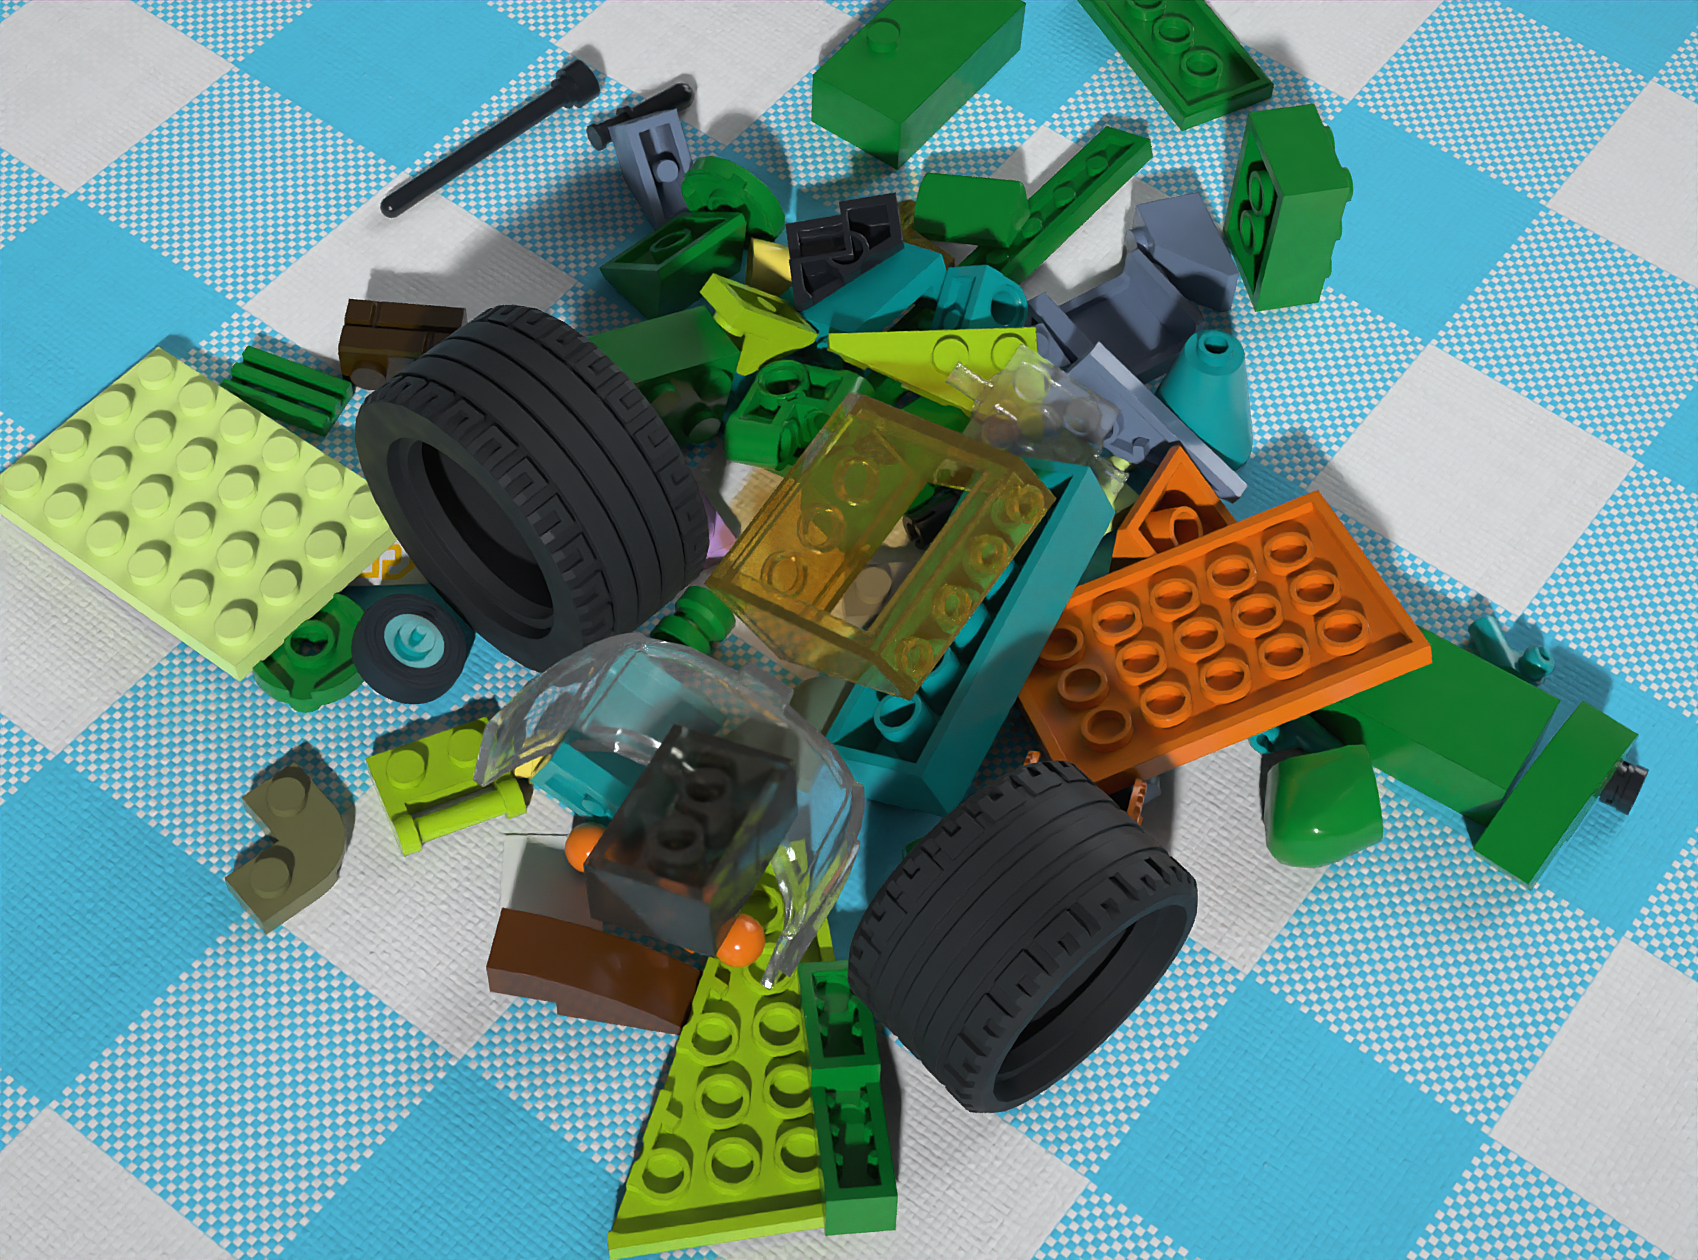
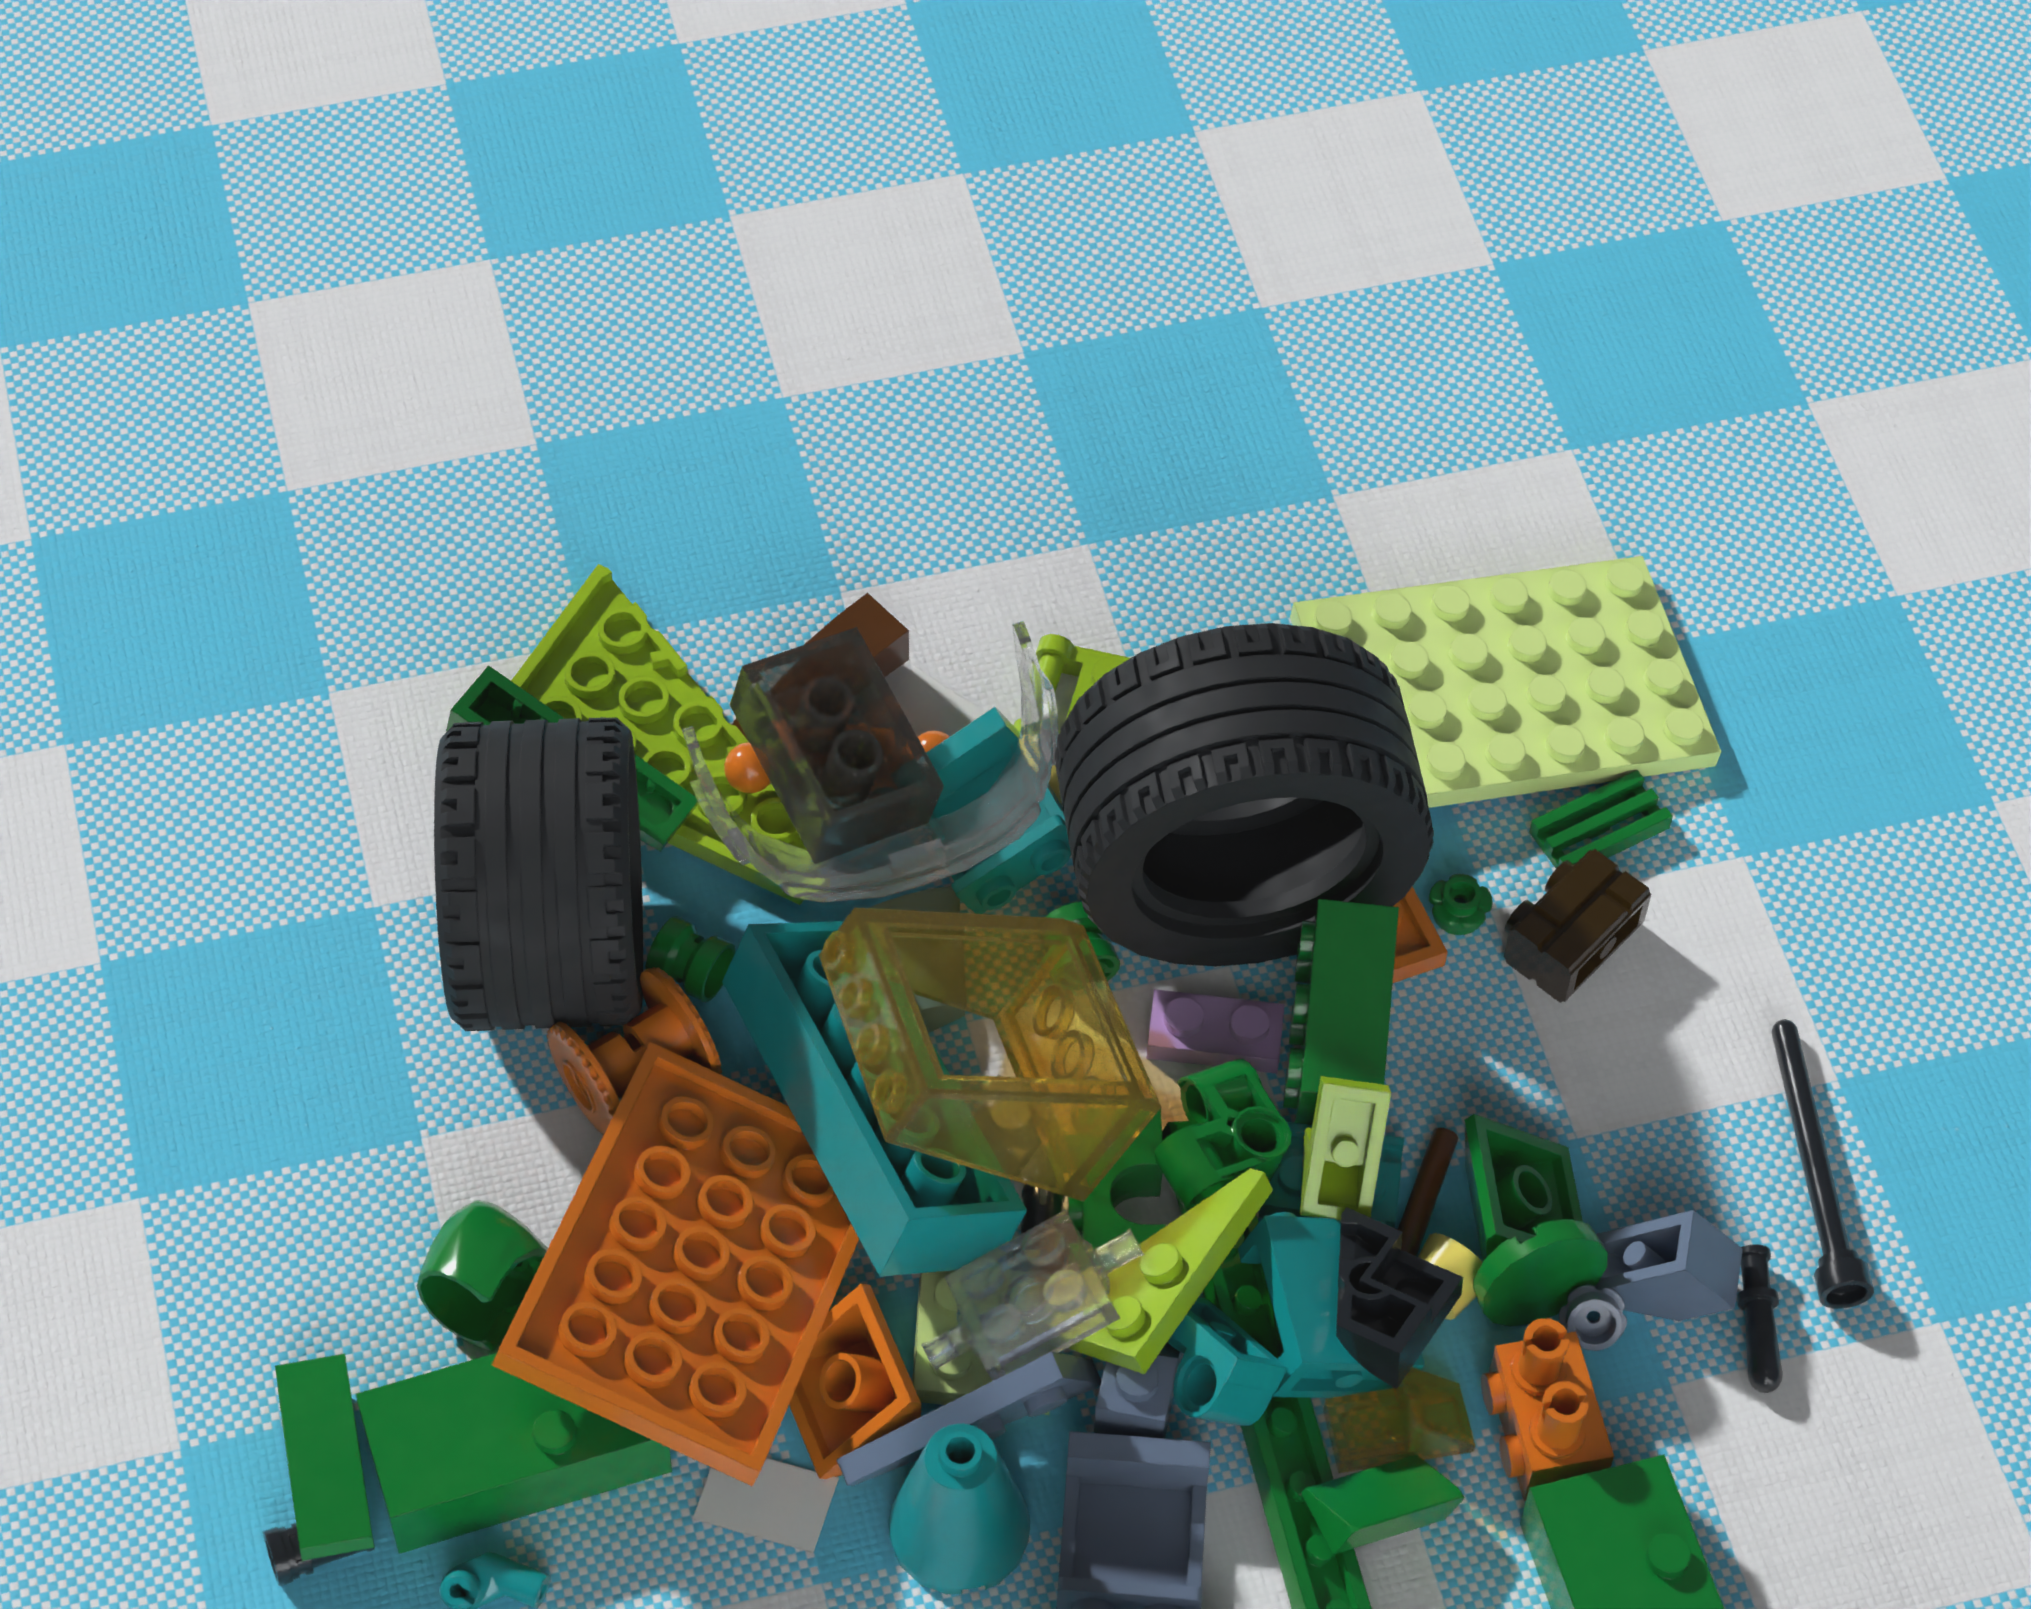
camera: 130 degrees right, 0 degrees up
(305, 850) = (1115, 598): olive plate -> none
(825, 160) = (1545, 1407): none -> orange brick

